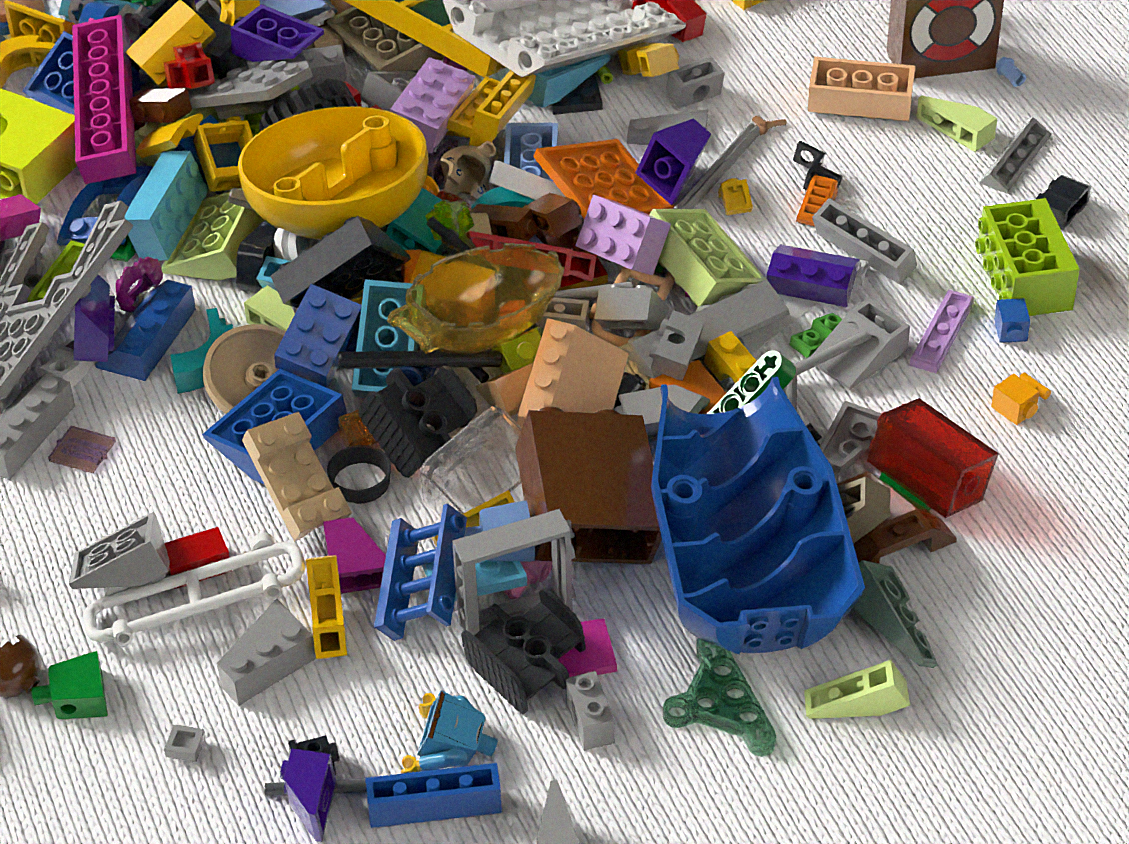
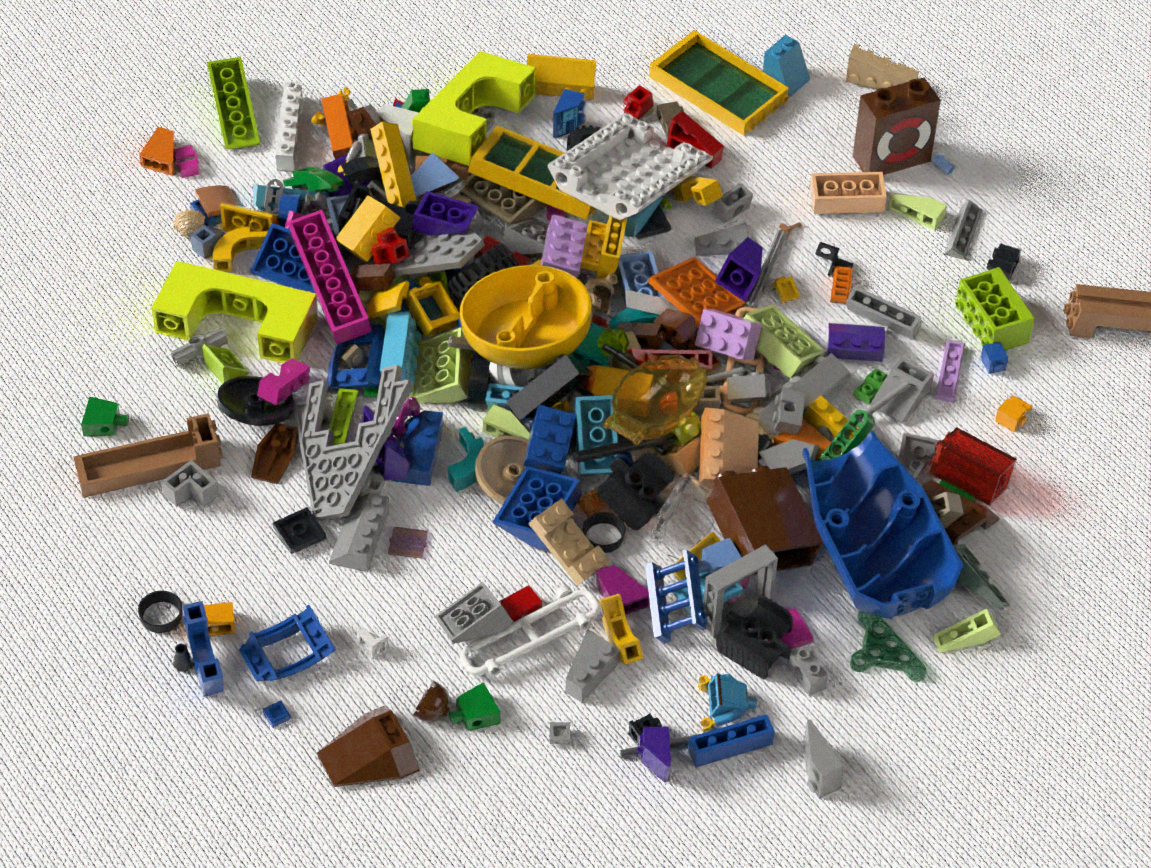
camera: 15 degrees left, 5 degrees up
(98, 198) = (353, 357): none -> dark tan bracket

